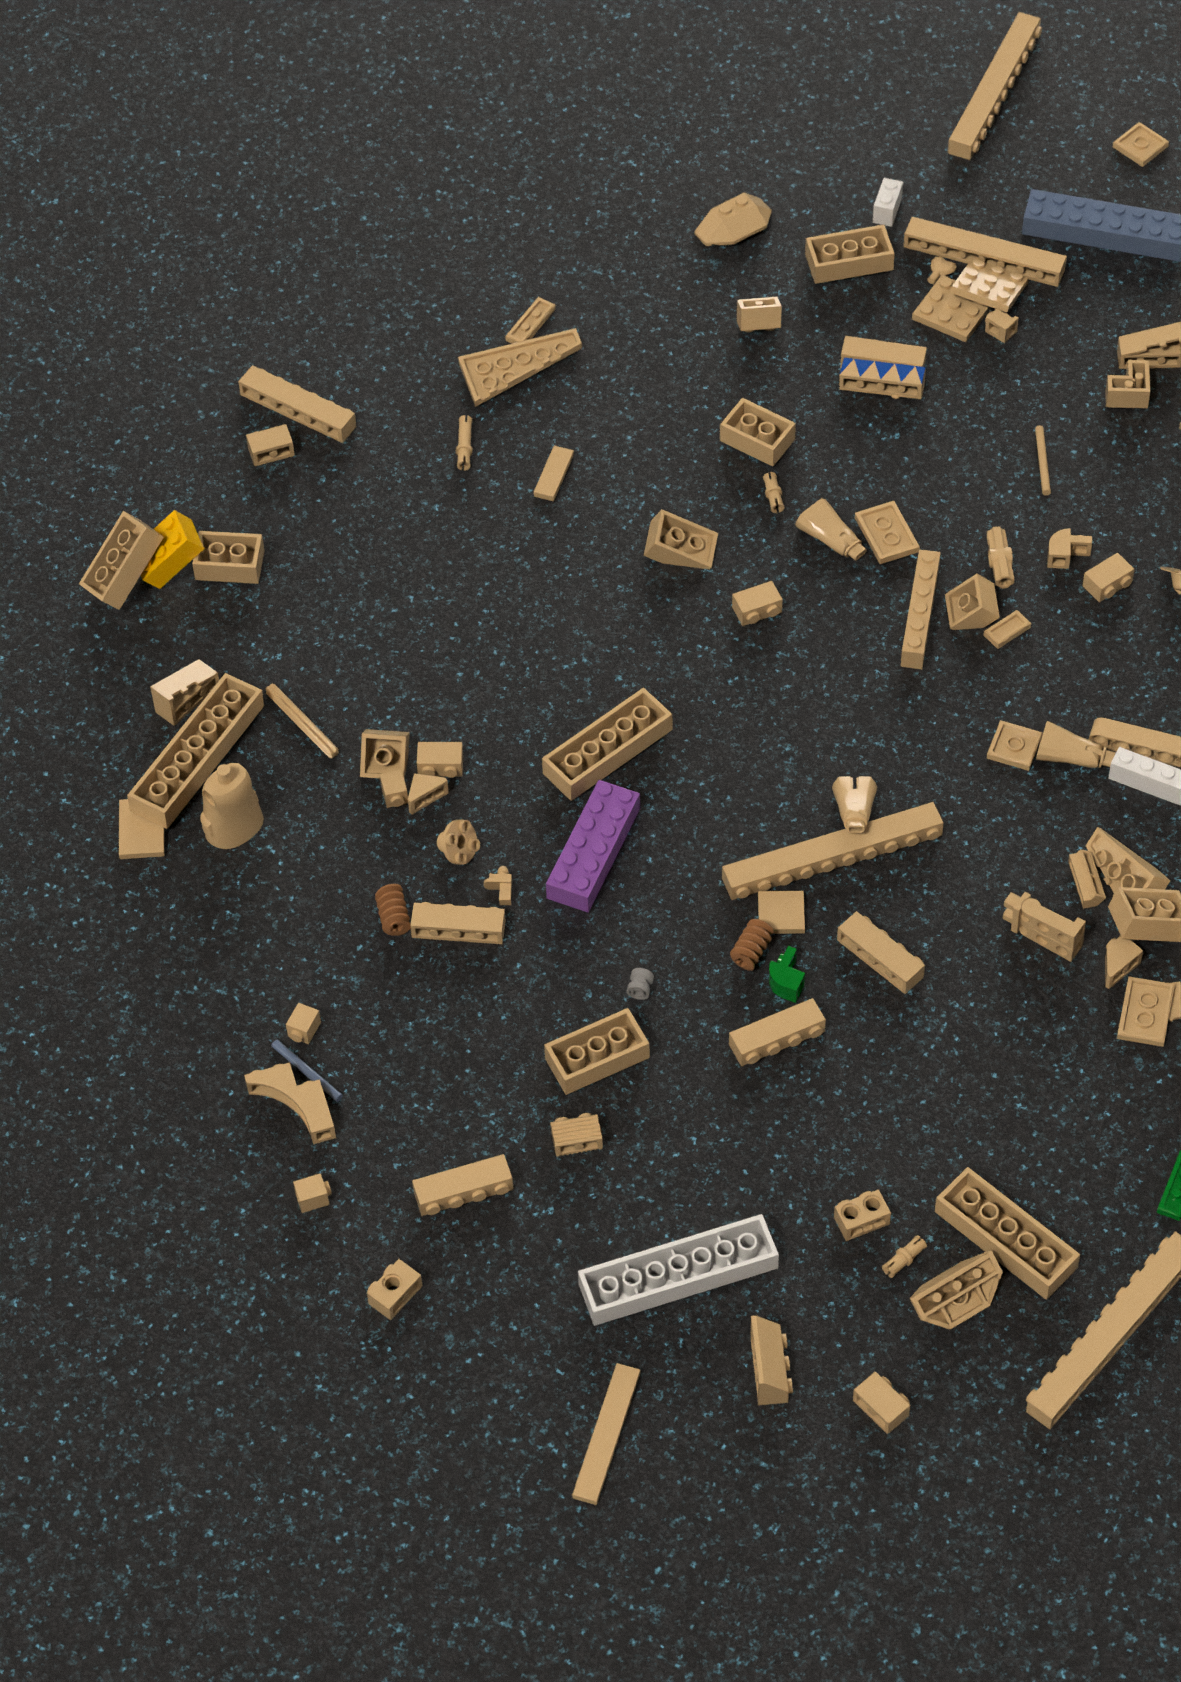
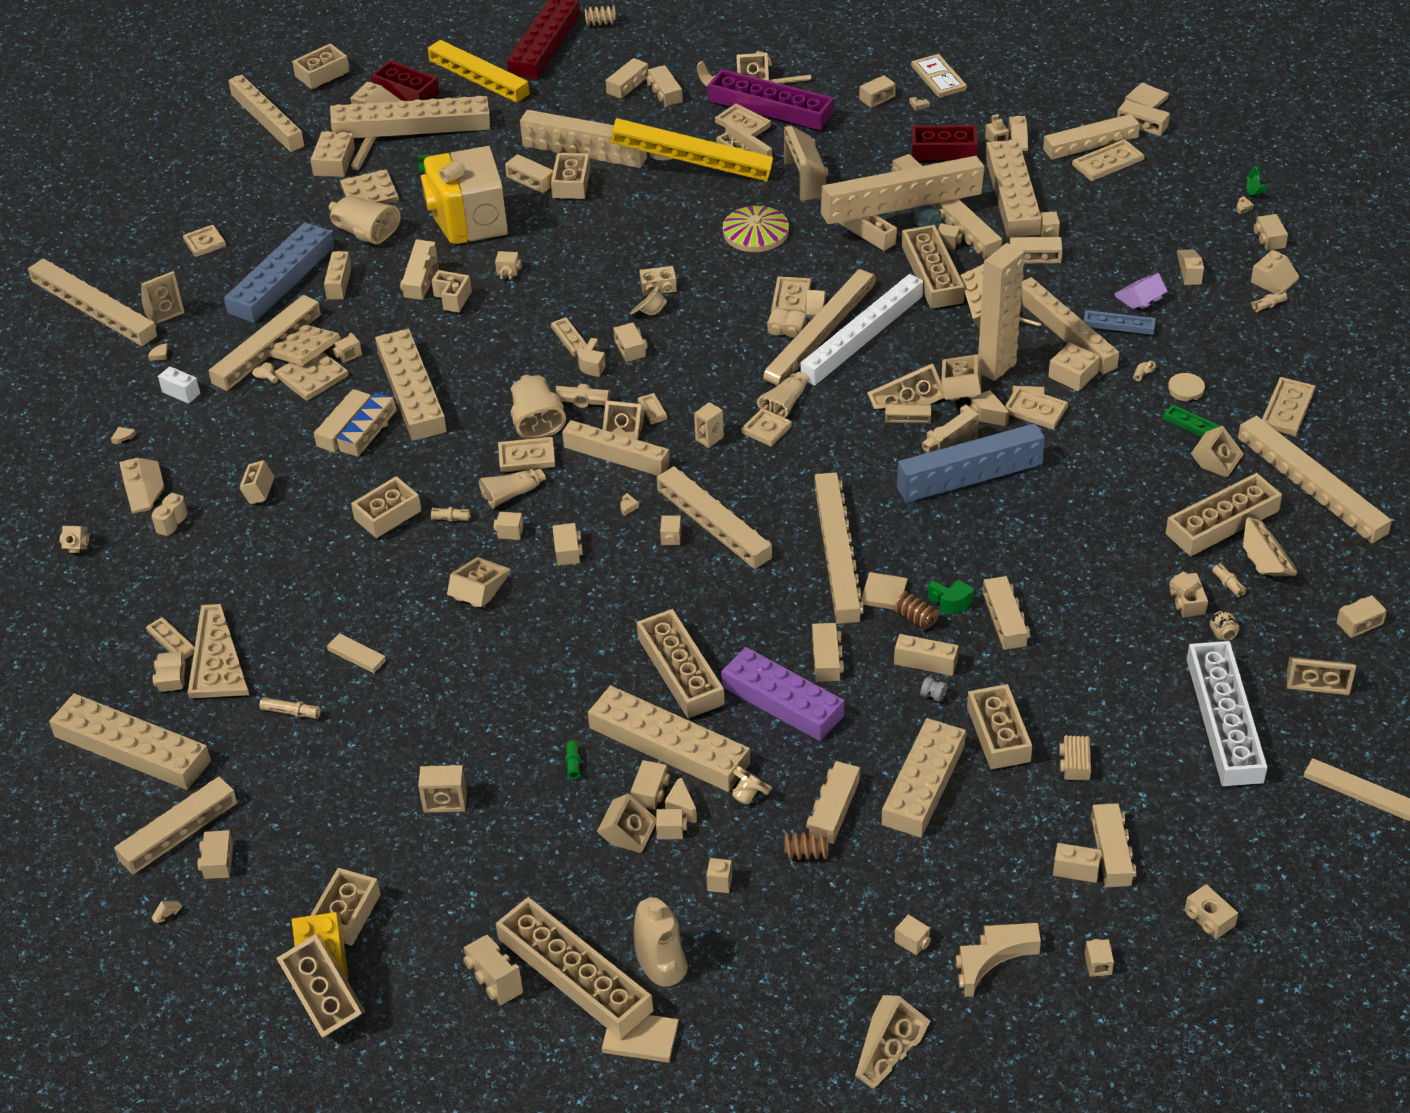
camera: 75 degrees left, 10 degrees down
(179, 1028) = (891, 1034): none -> tan wedge
(200, 429) = (165, 909): none -> tan tile
(302, 721) = (563, 883): tan axle -> none
(306, 1070) = (954, 947): sand blue bar -> none
(337, 844) = (719, 875): none -> tan brick
(384, 589) = (442, 788): none -> tan brick
(386, 335) = (130, 741): none -> tan brick
(428, 1151) = (1076, 862): none -> tan brick
(458, 688) = (573, 760): none -> green pin
(483, 335) = (169, 671): none -> tan brick
(502, 882) = (804, 763): tan piece -> none
(505, 758) = (668, 738): none -> tan brick
(510, 995) = (923, 777): none -> tan brick
(634, 198) = (74, 538): none -> tan brick
(666, 873) = (827, 652): none -> tan brick
(687, 966) = (926, 654): none -> tan brick
(693, 260) = (169, 514): none -> tan brick
(769, 546) = (509, 525): none -> tan brick
(801, 184) = (122, 434): none -> tan tile
(807, 691) = (670, 530): none -> tan brick
(823, 1257) = (1224, 625): none -> tan head
(842, 645) = (628, 504): none -> tan tile
(842, 726) = (714, 517): none -> tan brick
(849, 254) = (223, 416): tan brick -> none
(856, 803) = (794, 519): tan piece -> none
(863, 1198) = (1183, 583): none -> tan tile
(881, 952) = (944, 537): tan brick -> none
(939, 170) = (159, 353): none -> tan tile
(957, 515) = (535, 408): none -> tan torso
(960, 396) = (410, 385): none -> tan brick
(981, 683) = (708, 425): none -> tan brick
(1005, 953) = (970, 462): none -> sand blue brick
(1007, 139) = (161, 298): none -> tan slope
(1043, 465) = (494, 356): tan bar -> none
(1104, 519) = (568, 335): none -> tan tile
(1119, 277) = (337, 275): none -> tan brick
(1124, 1218) = (1217, 452): none -> tan slope

